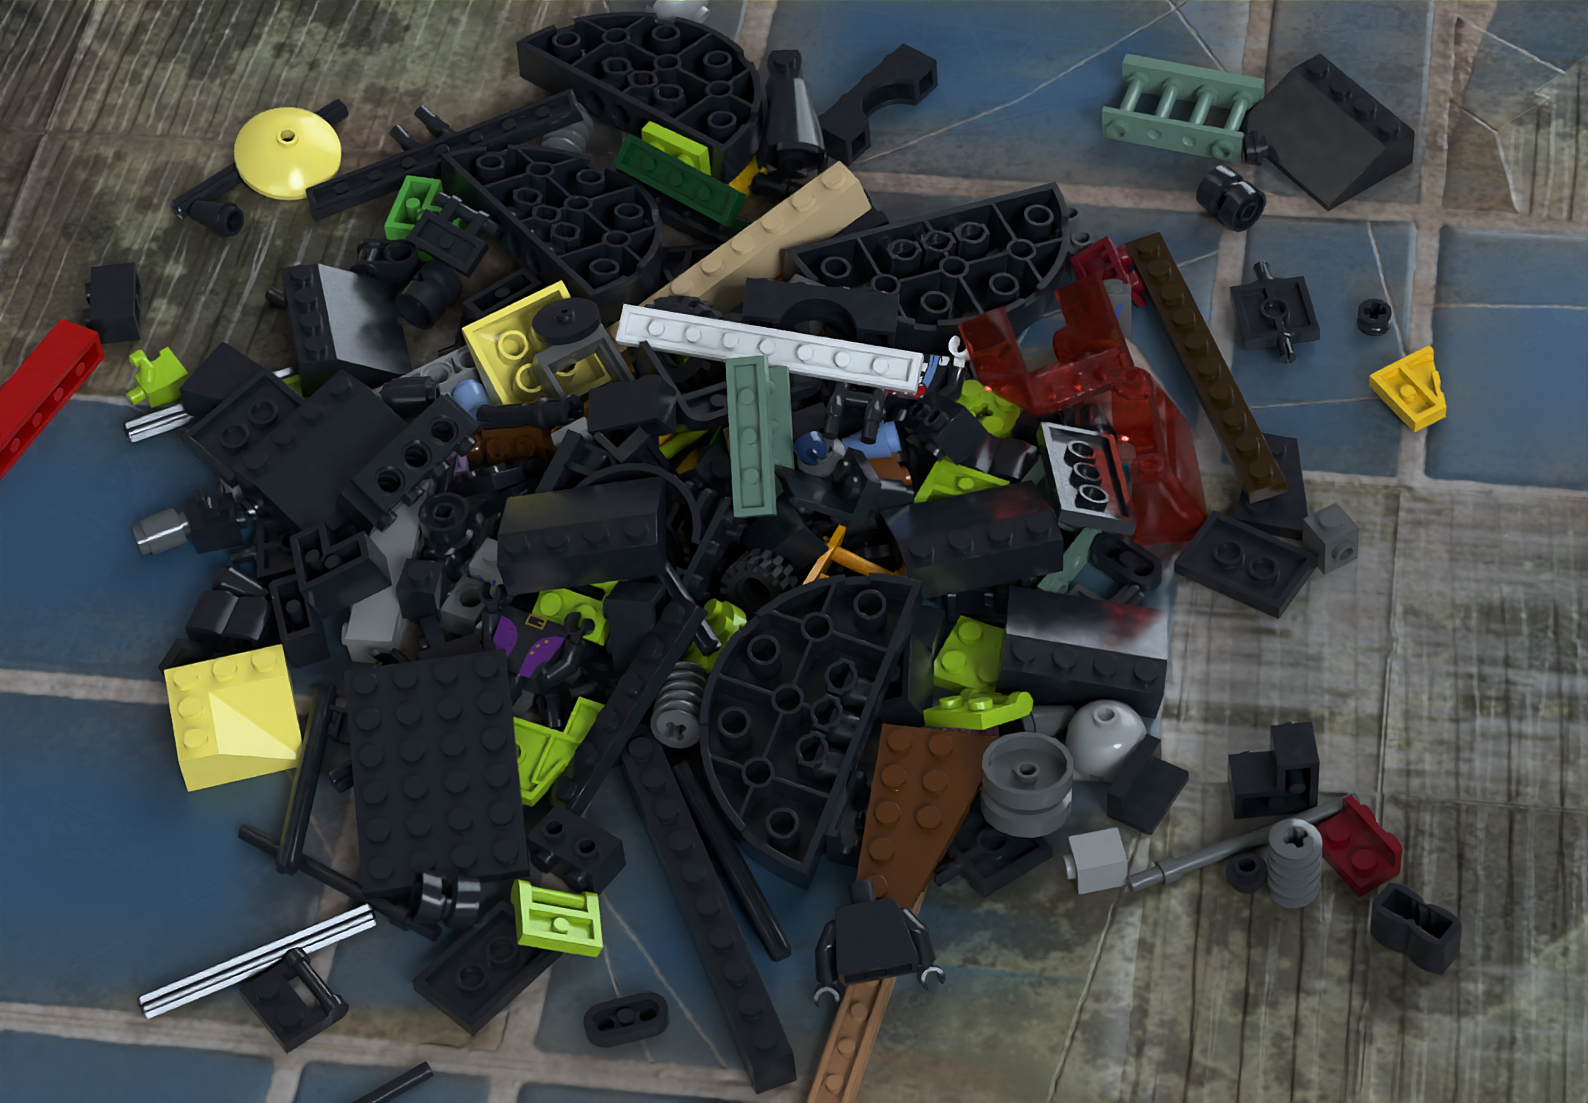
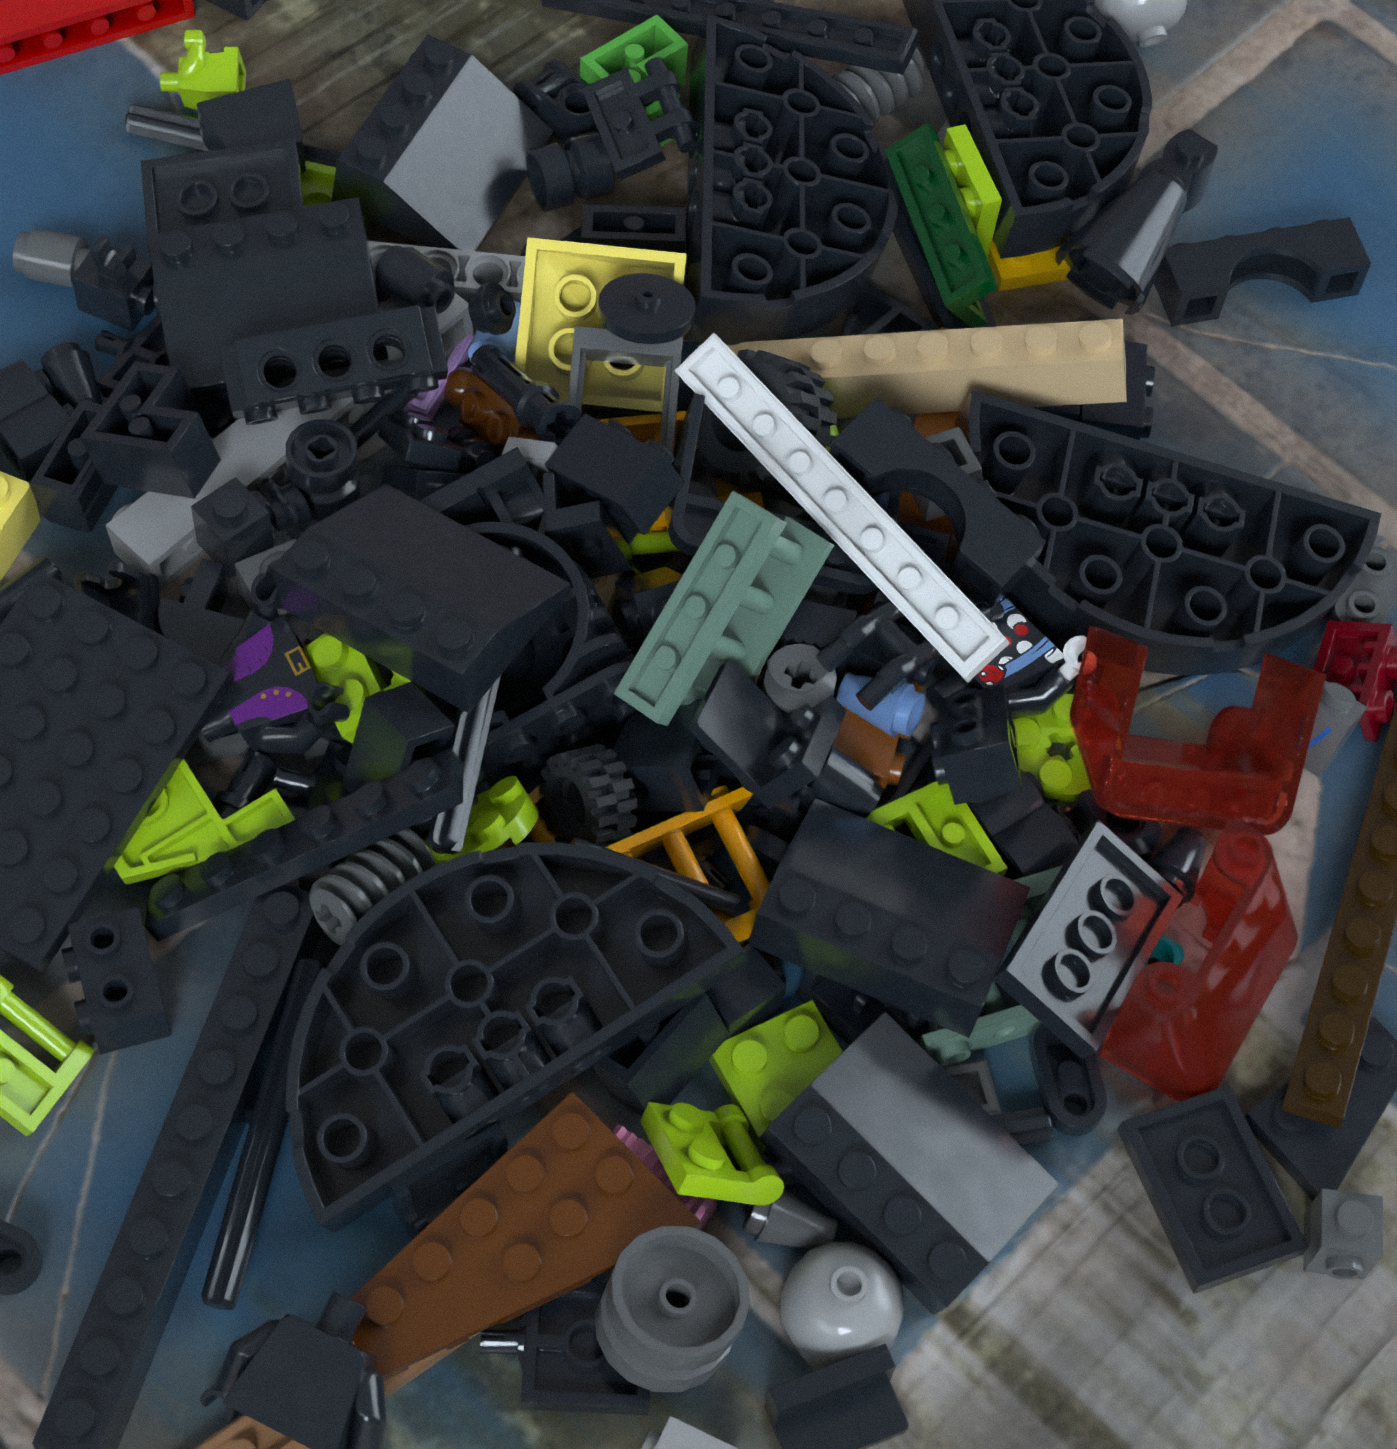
camera: 25 degrees right, 10 degrees up
(464, 387) = (492, 309): none -> black plate
(774, 187) = (1061, 297): black pin -> none
(810, 448) = (784, 666): dark blue hinge -> none

